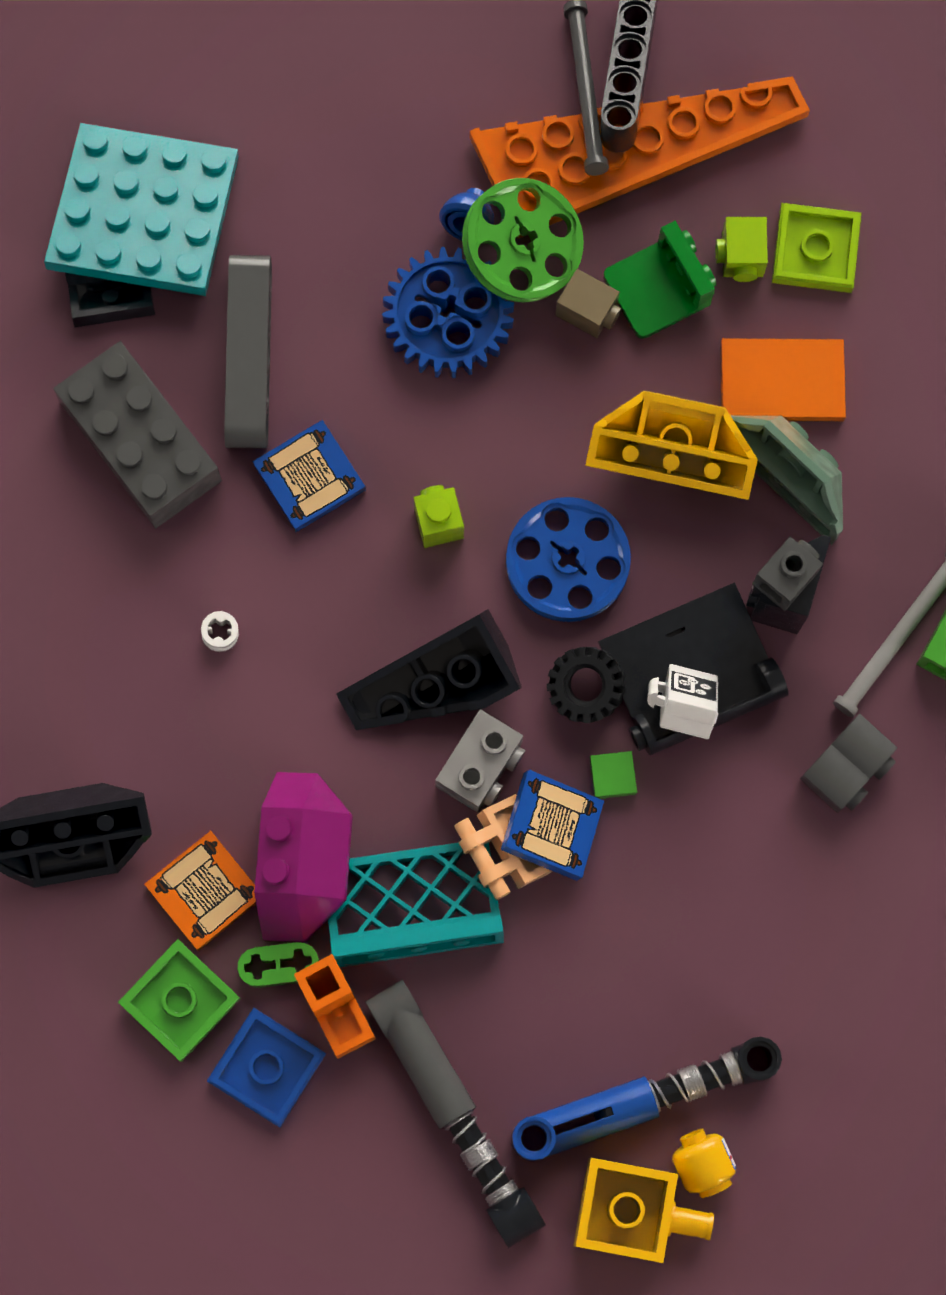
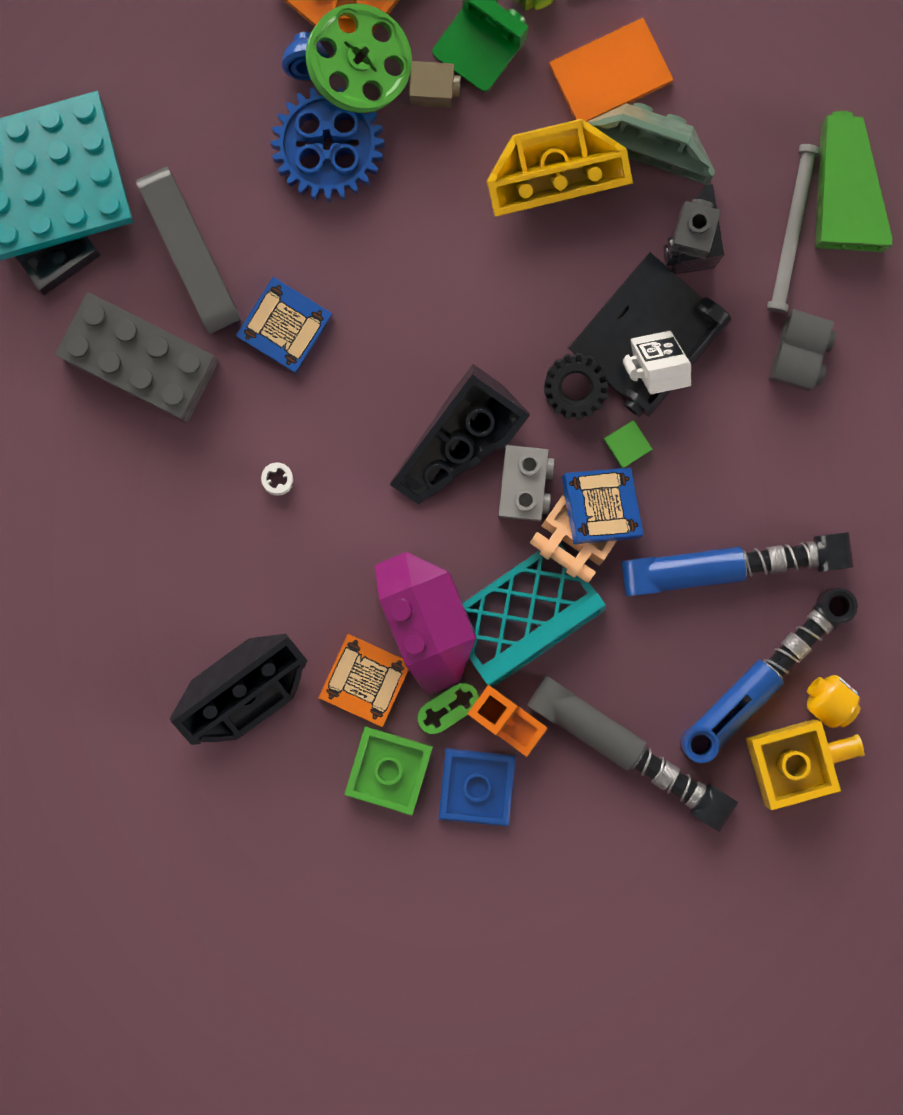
camera: 20 degrees left, 10 degrees up
(438, 516) = (400, 309): lime brick -> none
(570, 539) = (511, 276): blue wedge -> none
(663, 958) = (733, 564): none -> piece

